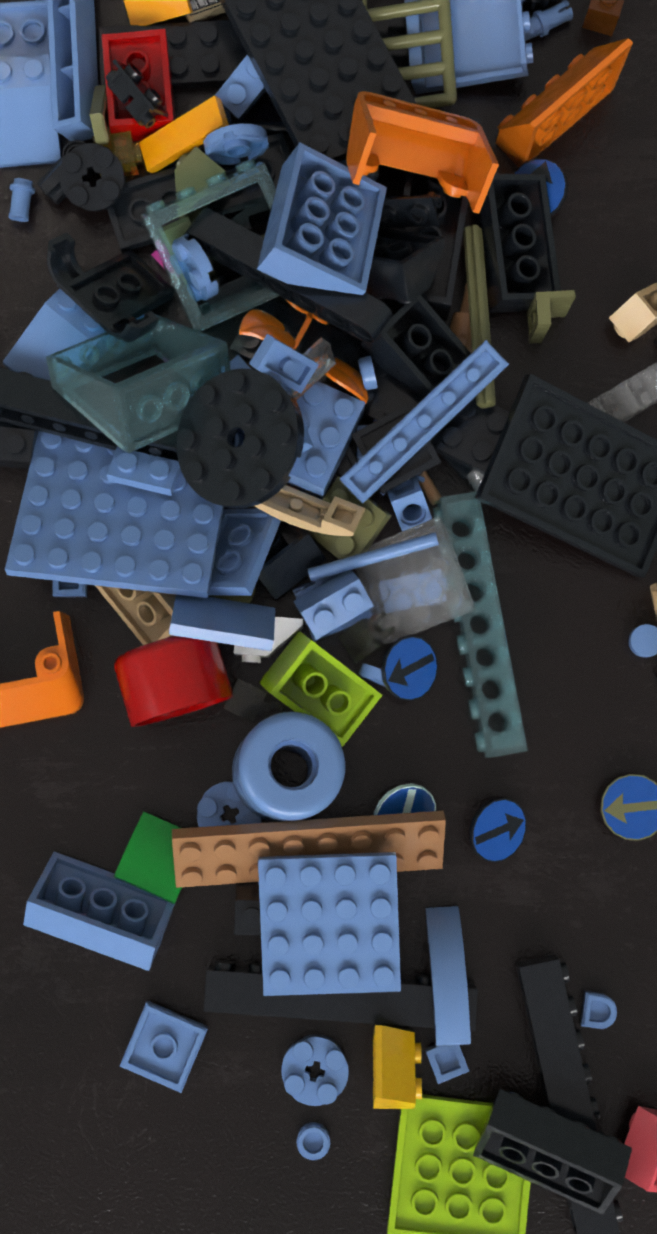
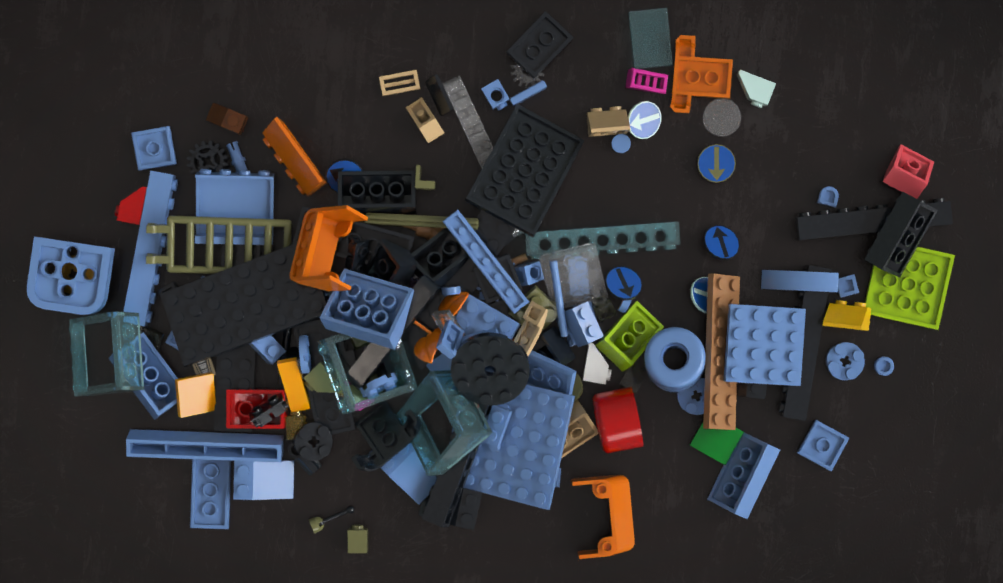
camera: 85 degrees left, 5 degrees up
(21, 199) = (317, 486): medium blue pin -> none
(99, 115) = (276, 433): olive tile -> none
(223, 621) = (589, 387): medium blue tile -> none

